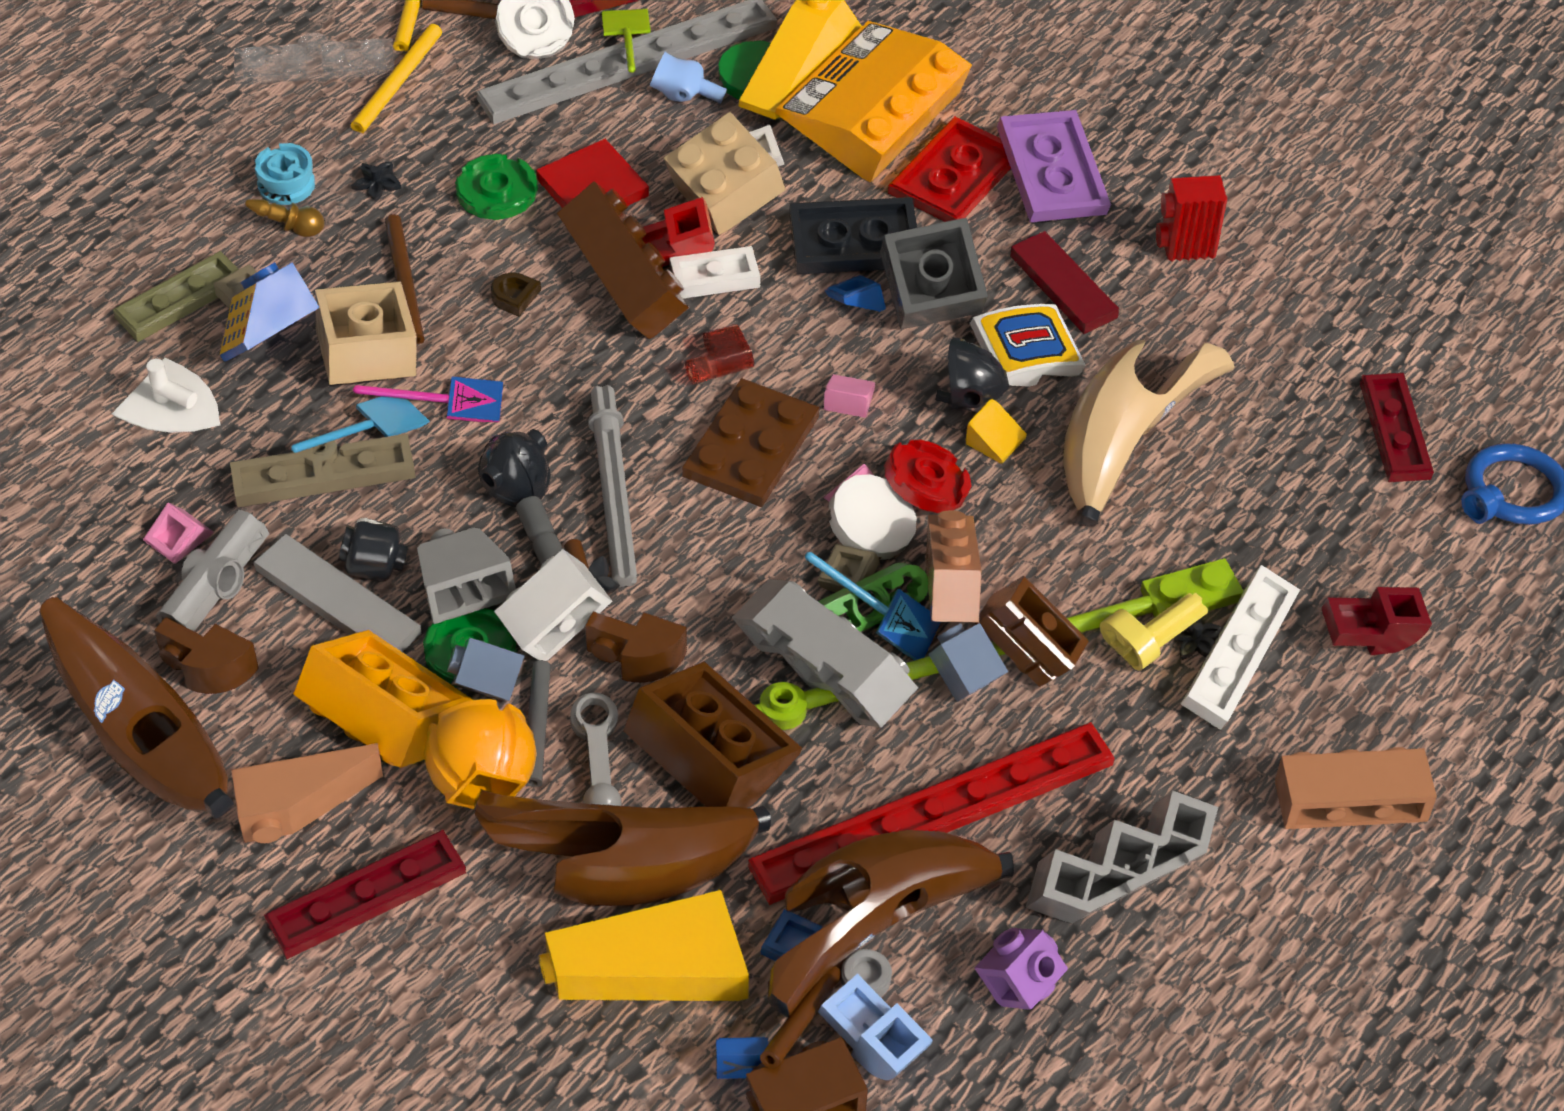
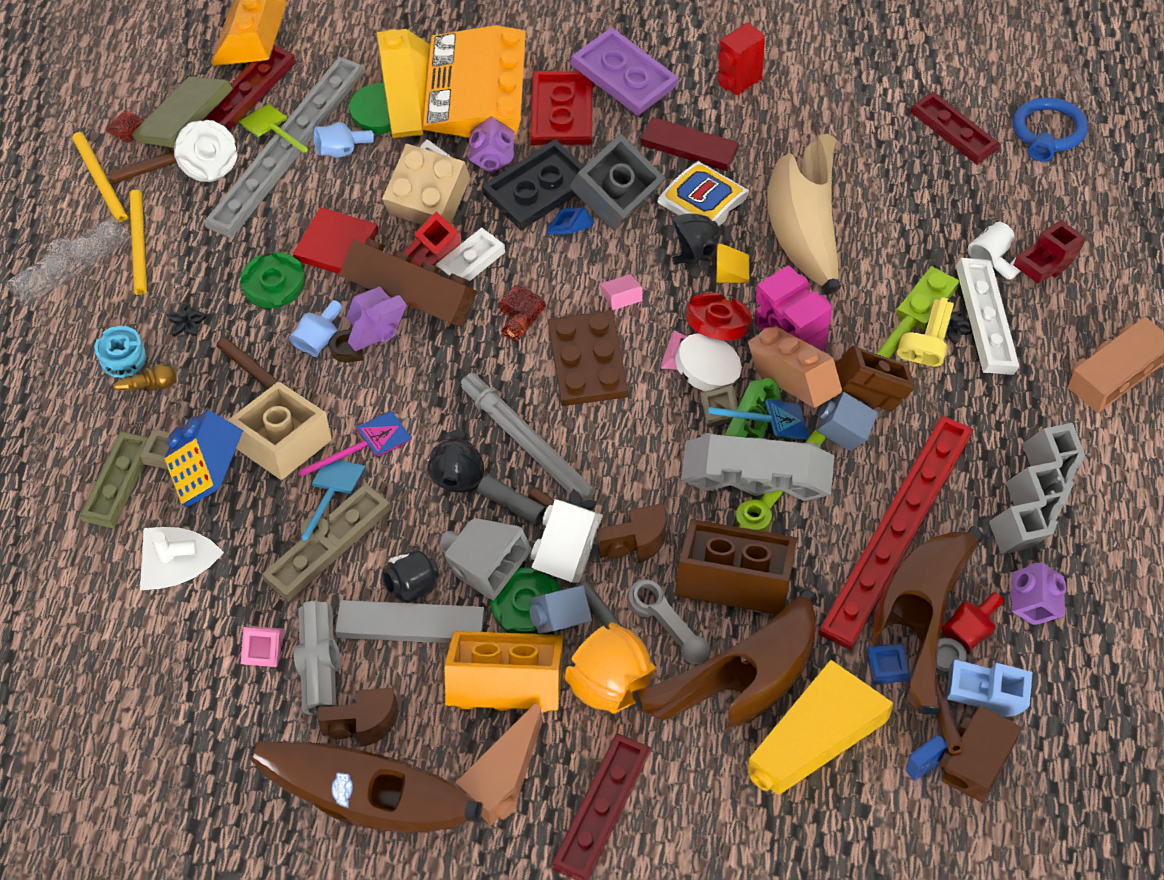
camera: 30 degrees left, 5 degrees up
(493, 256) = (316, 330): none -> light blue piece
(555, 276) = (374, 317): none -> medium lavender brick
(835, 167) = (491, 145): none -> medium lavender brick
(925, 957) = (972, 623): none -> red piece
(1006, 515) = (793, 308): none -> dark pink brick
(1315, 576) = (992, 246): none -> white piece

